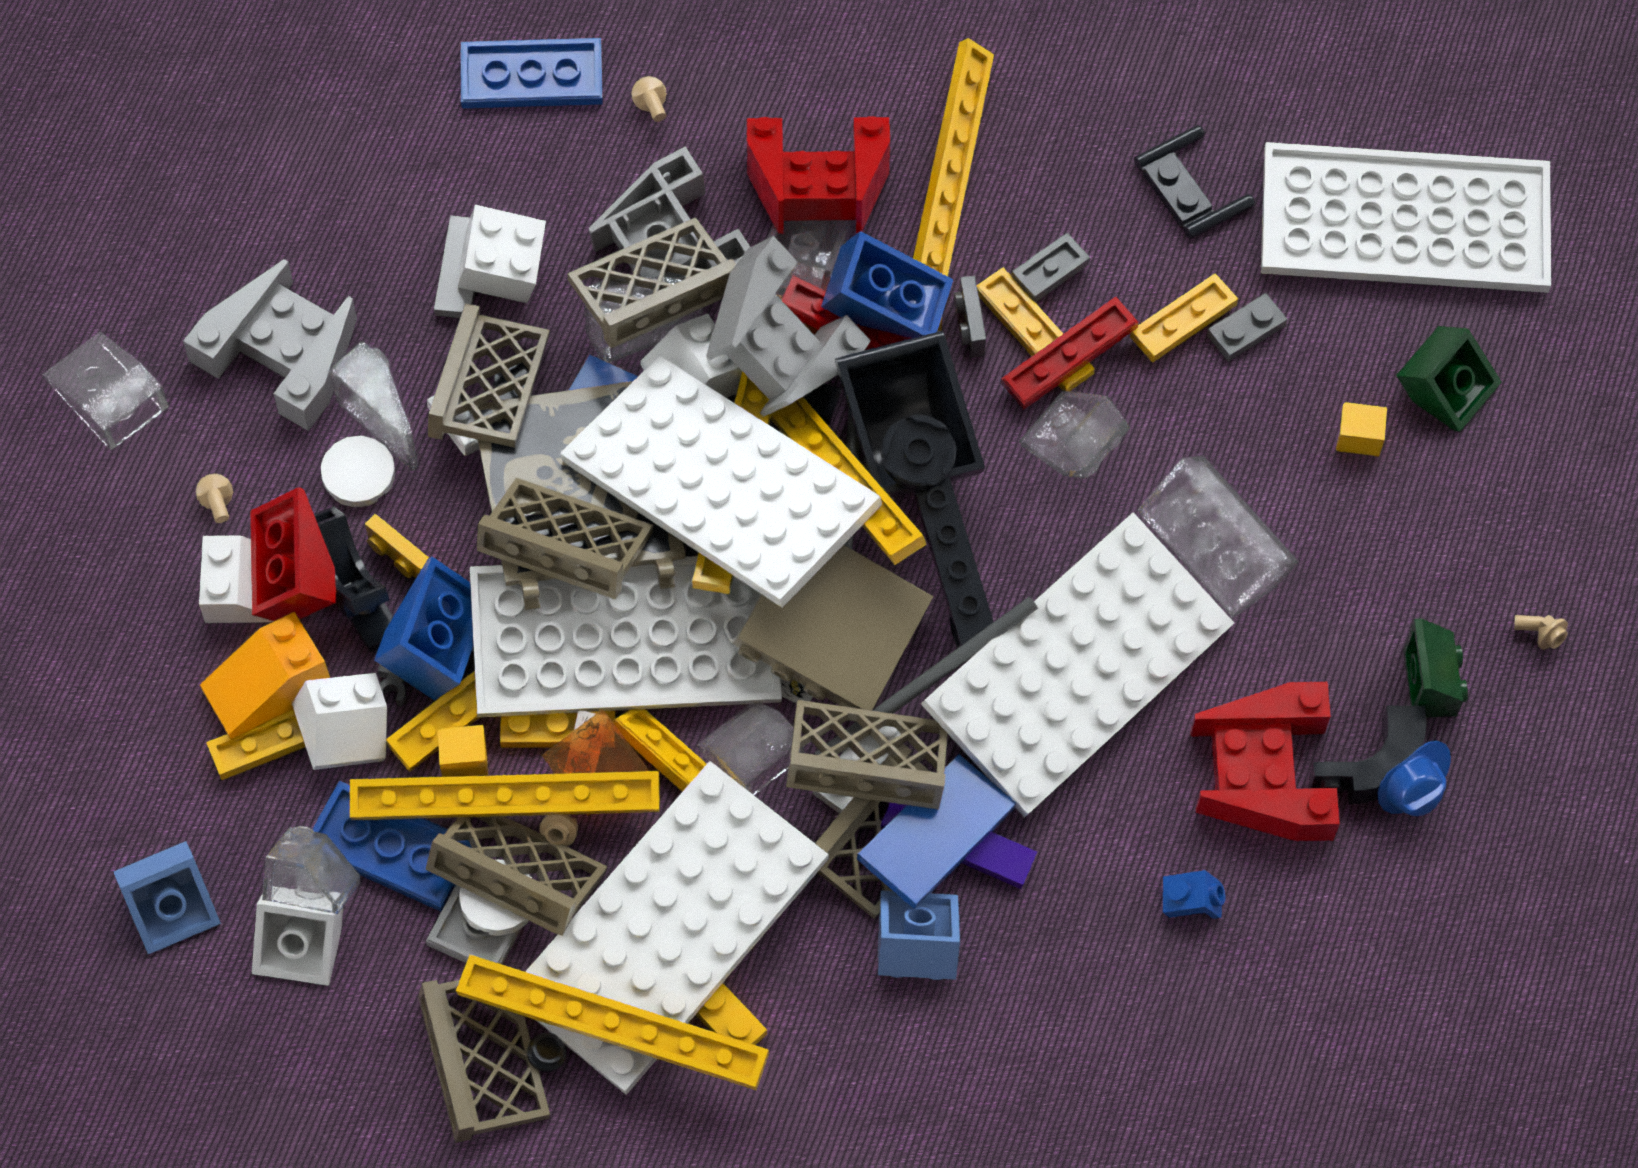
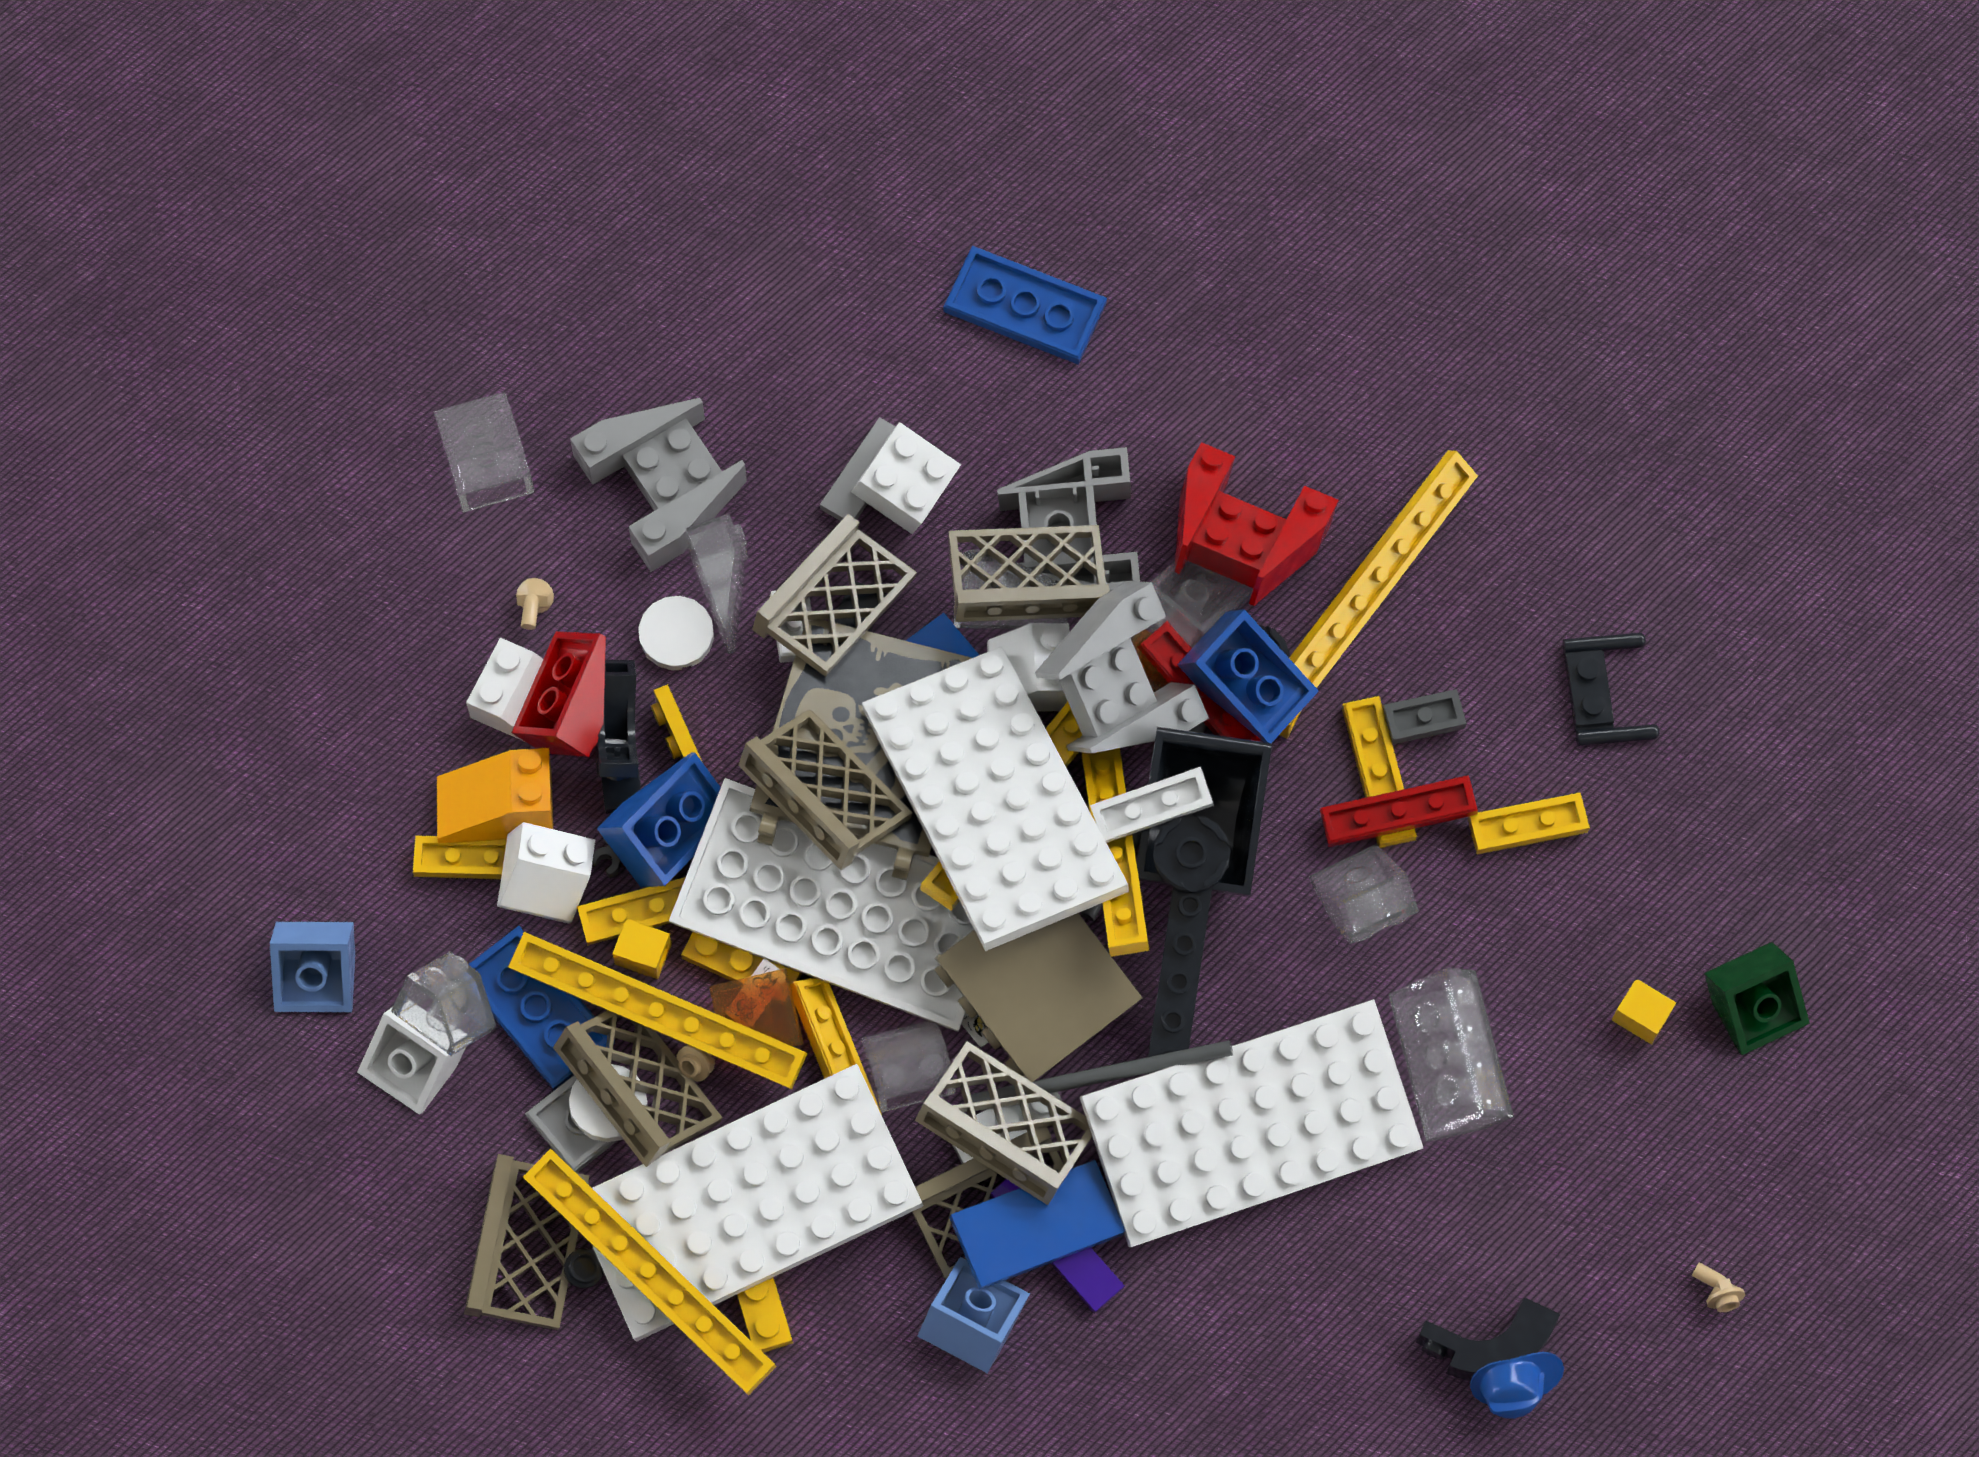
camera: 25 degrees right, 5 degrees up
(650, 95) = (1124, 376): tan plate -> none
(824, 401) = (1137, 758): black tile -> none
(866, 423) = (1152, 805): none -> white plate
(972, 330) = (1316, 747): plate -> none
(1193, 894) = (1250, 1394): blue bracket -> none
(1247, 327) = (1586, 859): plate -> none
(1257, 763) = (1375, 1295): red wedge -> none
(1406, 217) = (1800, 817): white plate -> none
(1433, 669) = (1589, 1283): dark green slope -> none

